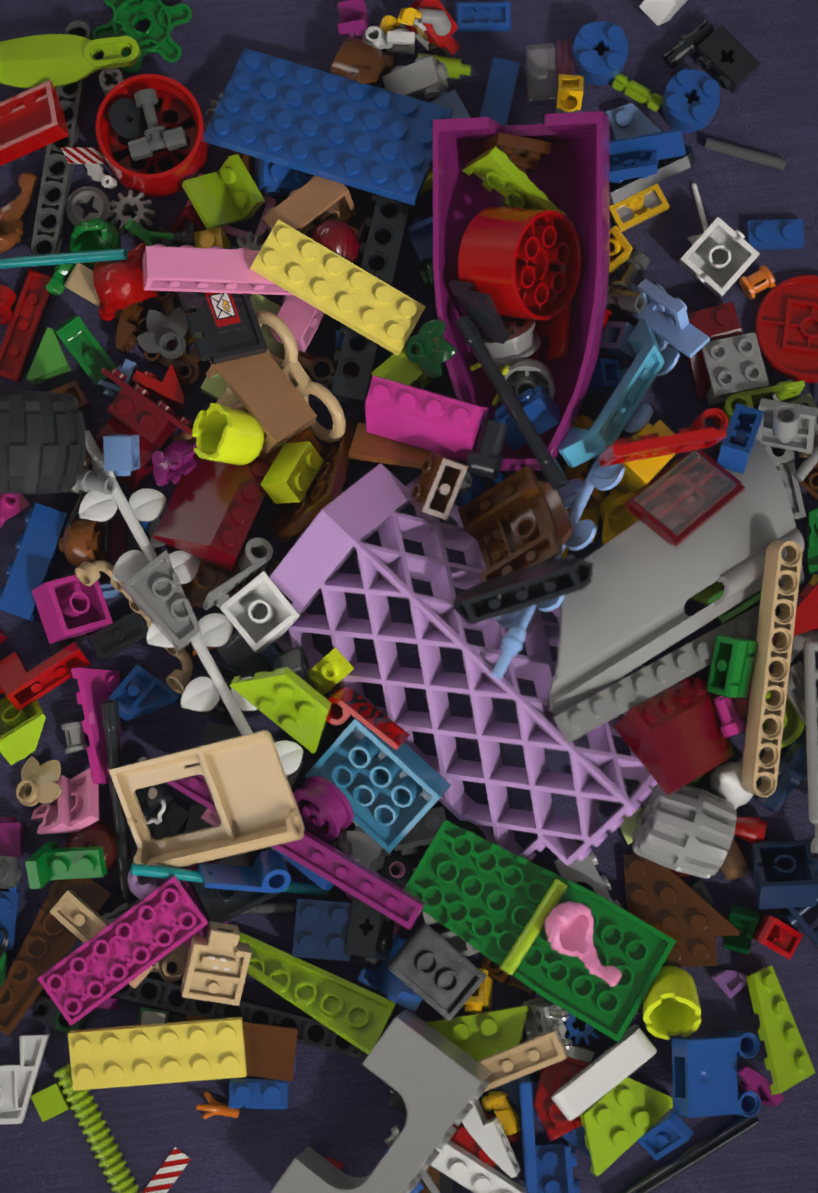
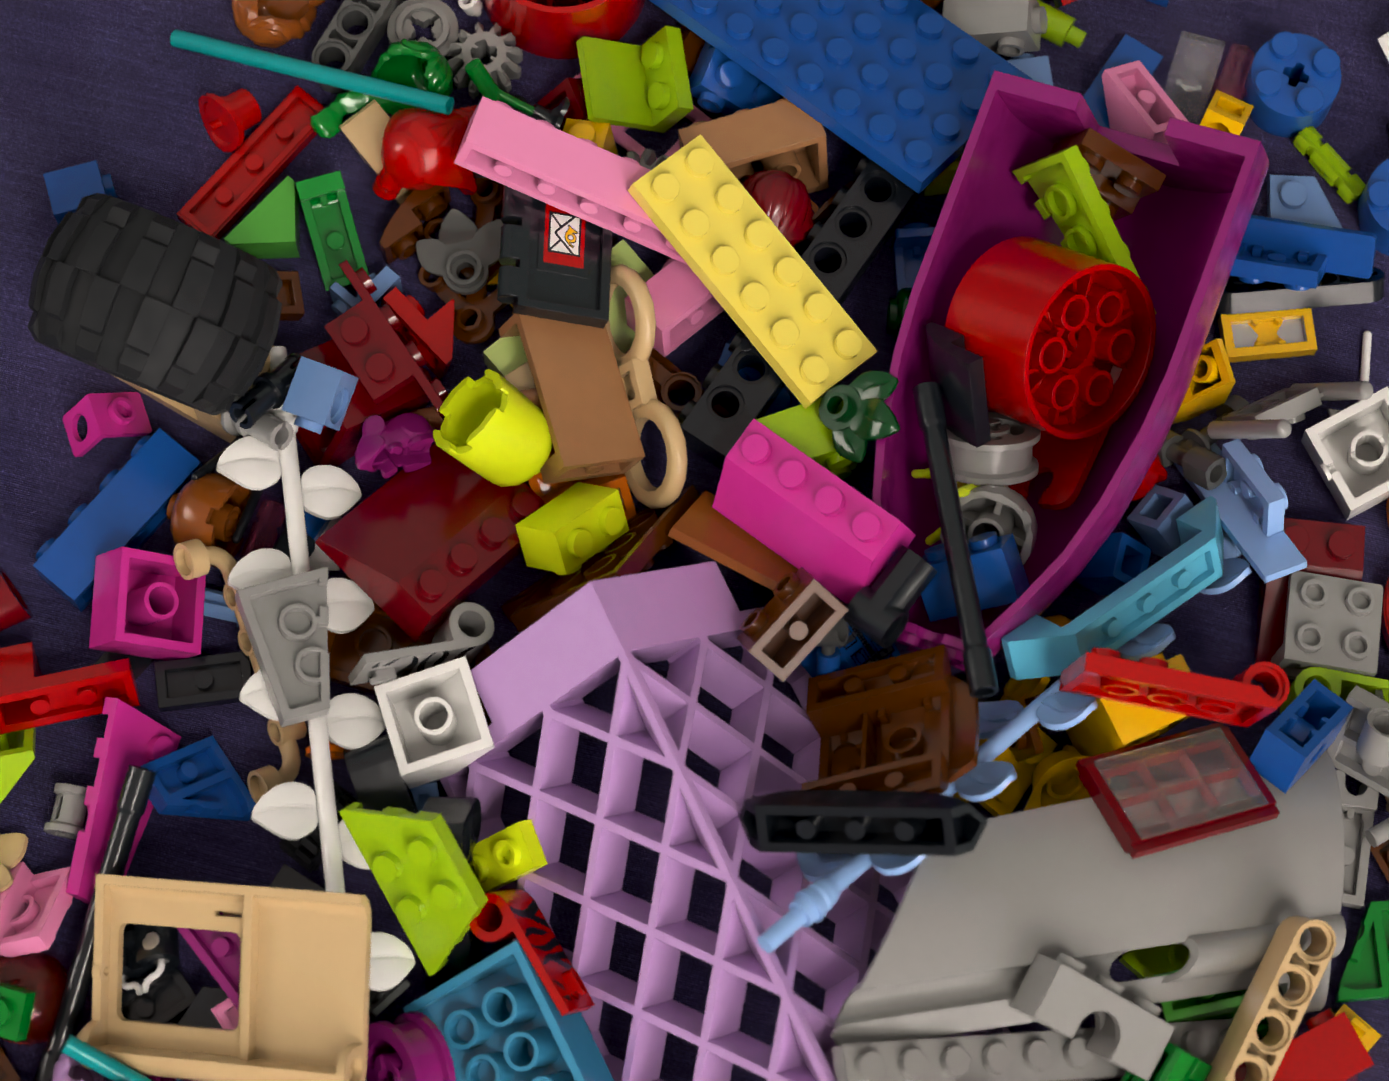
camera: 20 degrees right, 10 degrees down
(92, 463) = (267, 392): none -> black pin
(519, 101) = (1137, 102): none -> bright pink slope
(652, 263) = (1276, 412): none -> light grey plate
(704, 642) = (1124, 1031): none -> light grey arch

